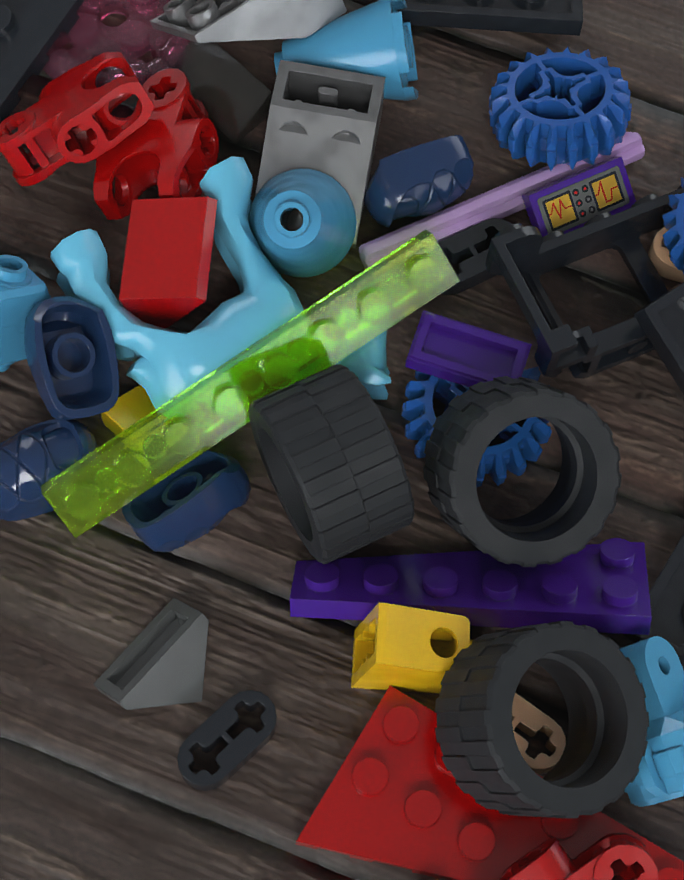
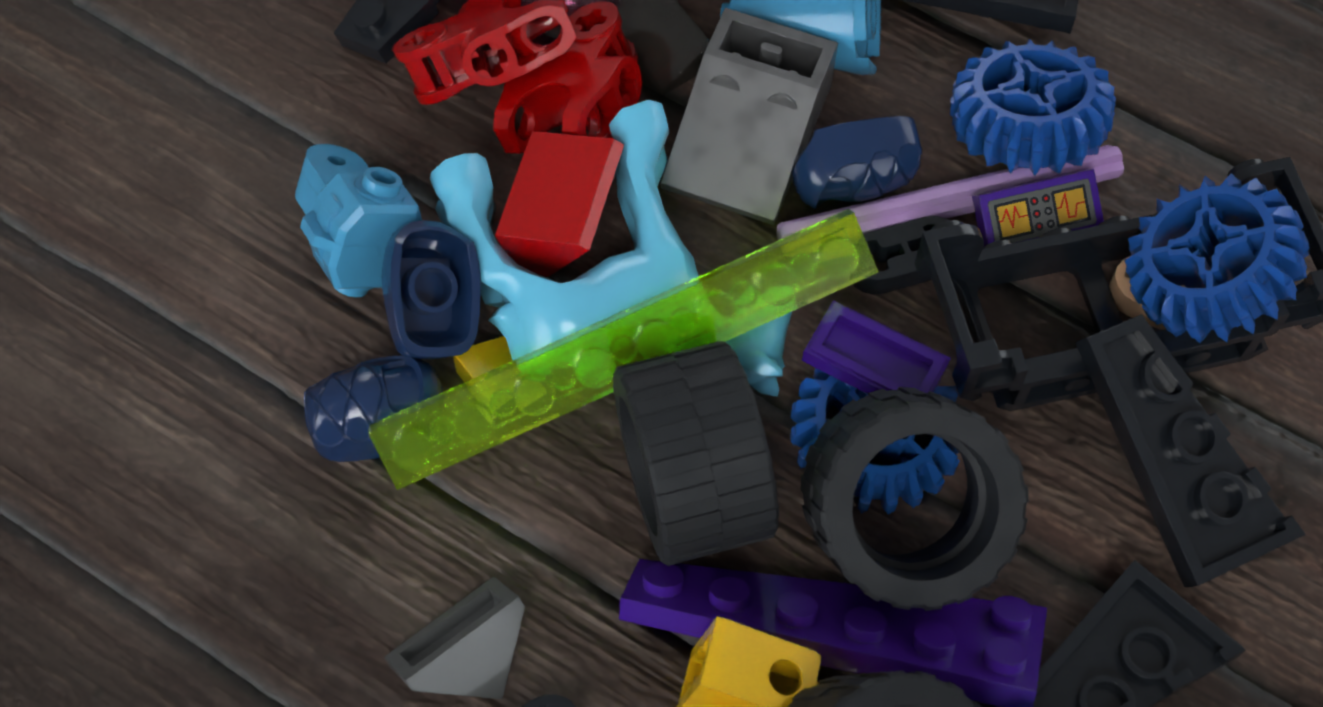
camera: 15 degrees right, 5 degrees down
(188, 502) = (530, 471): dark blue piece -> none
(326, 226) = (733, 201): dark azure cone -> none

